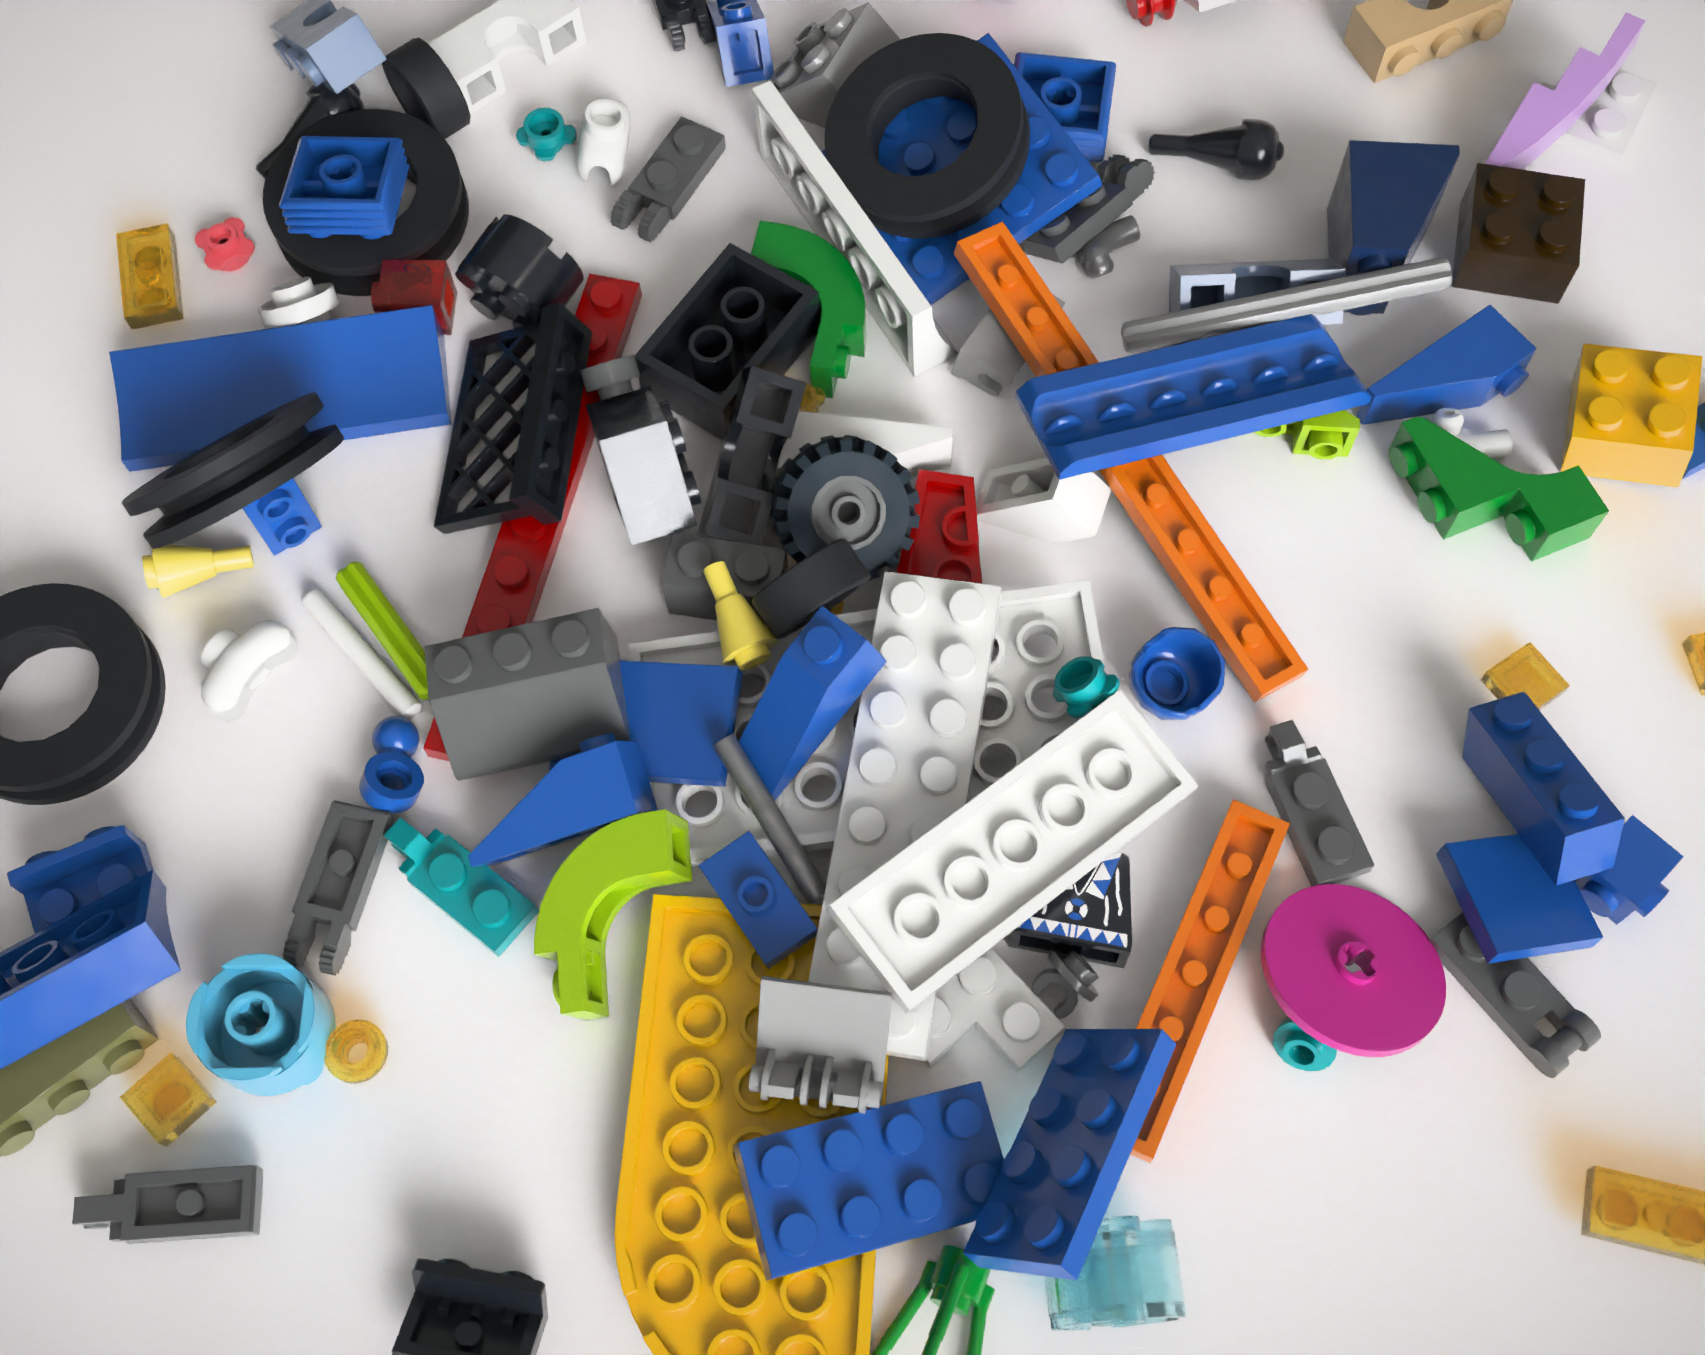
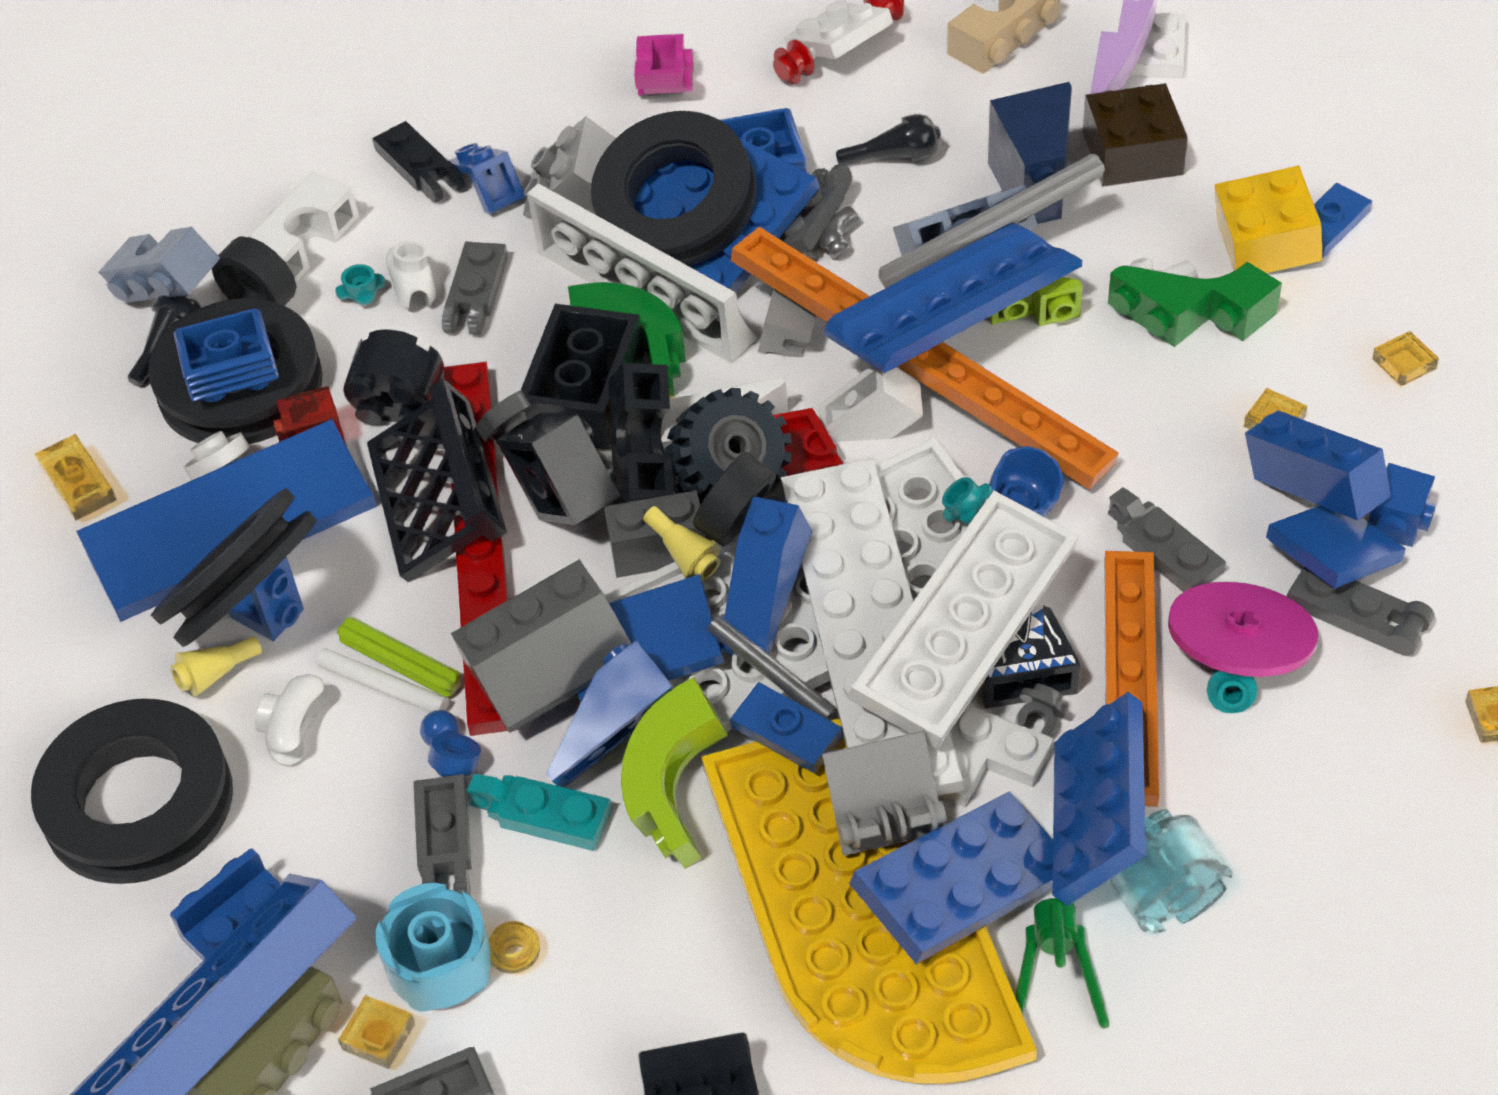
camera: 20 degrees left, 15 degrees down
(225, 245) = (129, 438): coral plate -> none
(1454, 372) = (1134, 230): blue slope -> none

